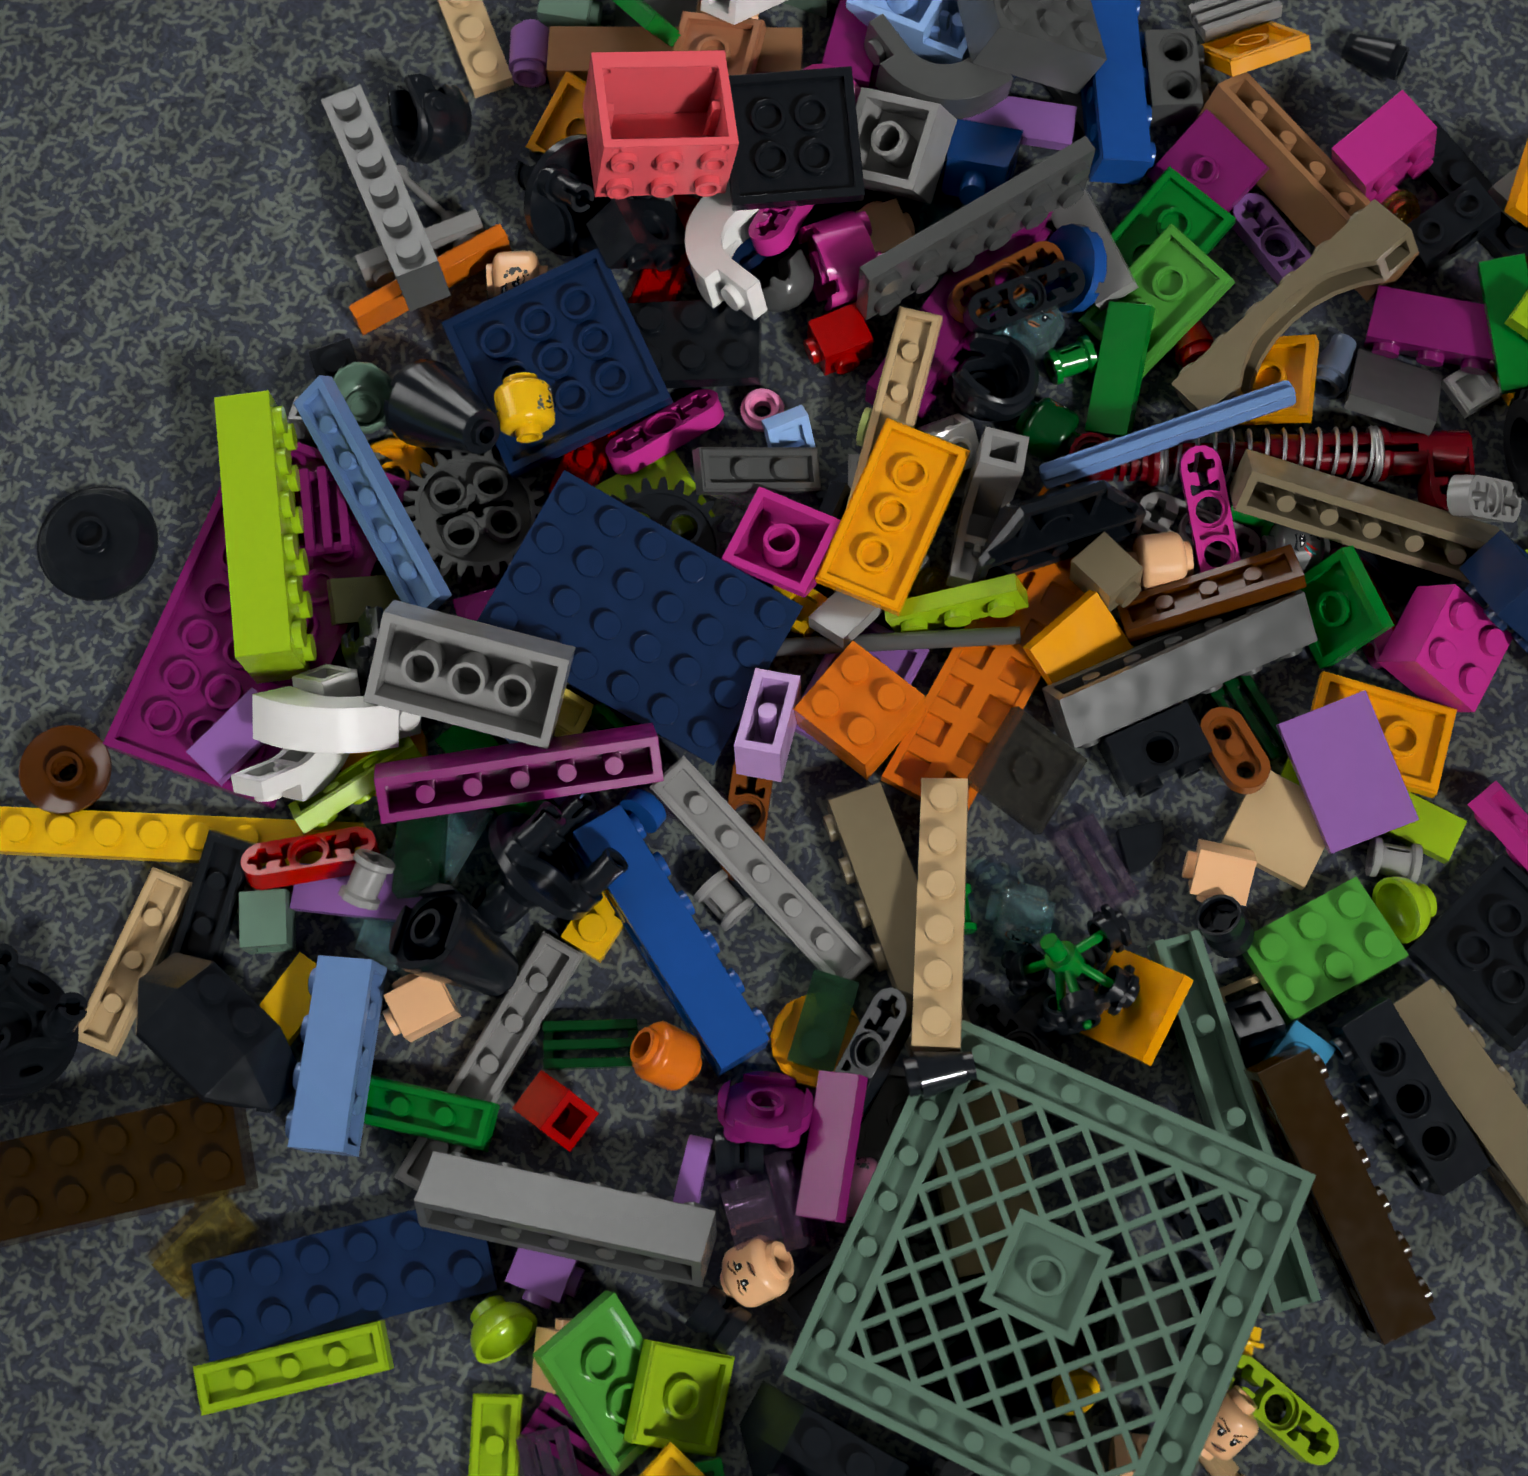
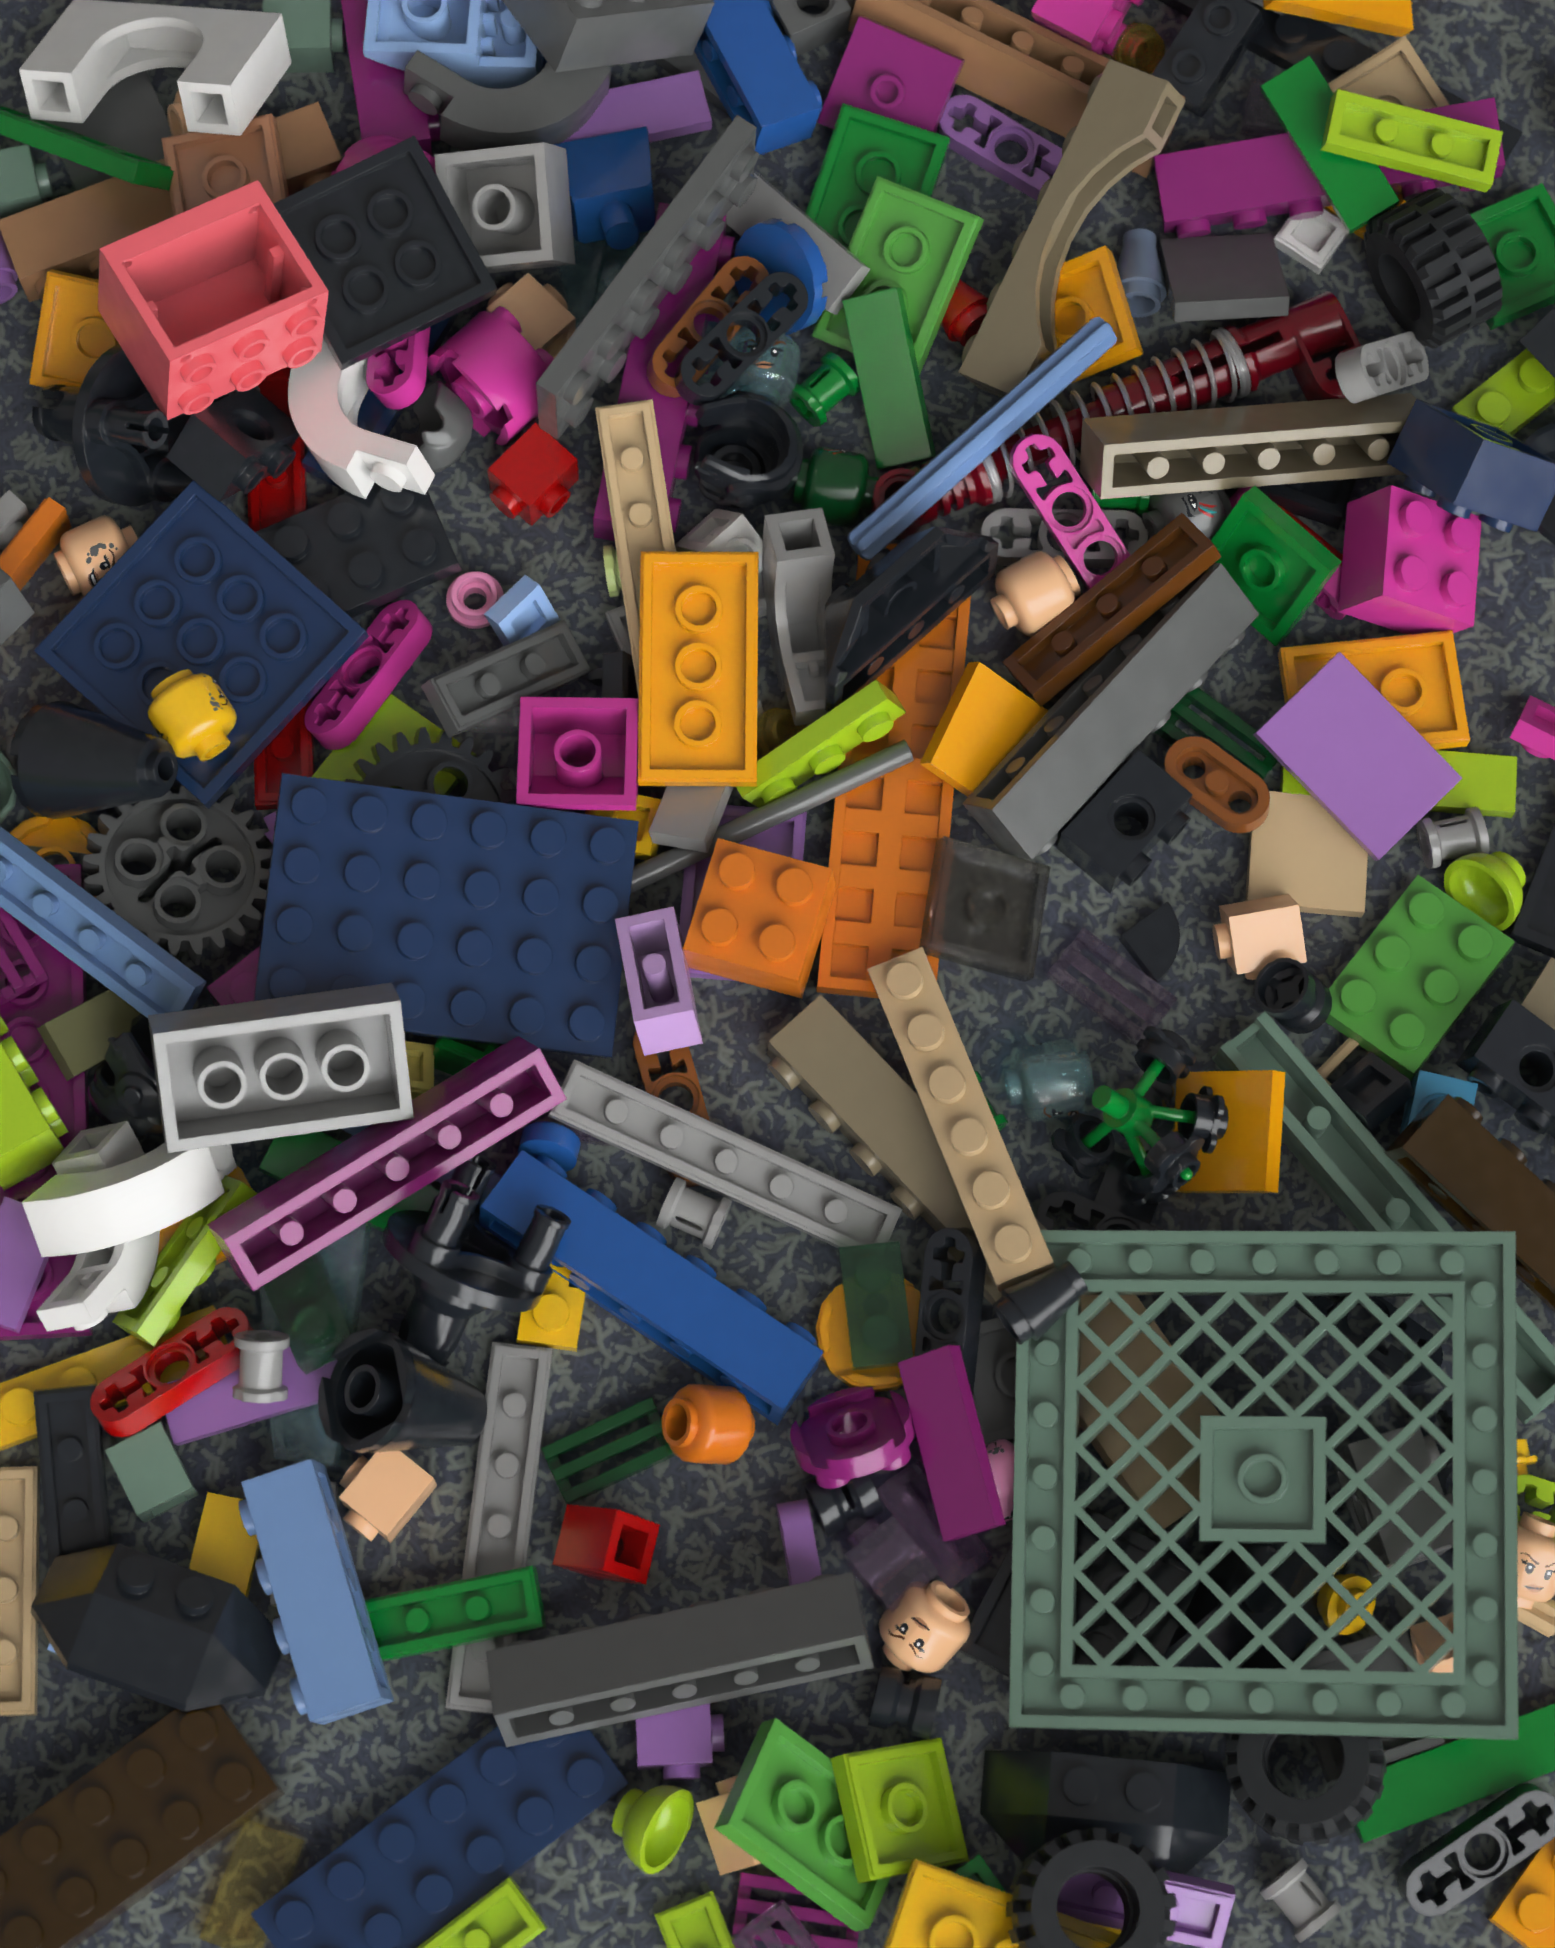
camera: 30 degrees left, 0 degrees up
(1108, 571) = (982, 632): dark tan brick -> none

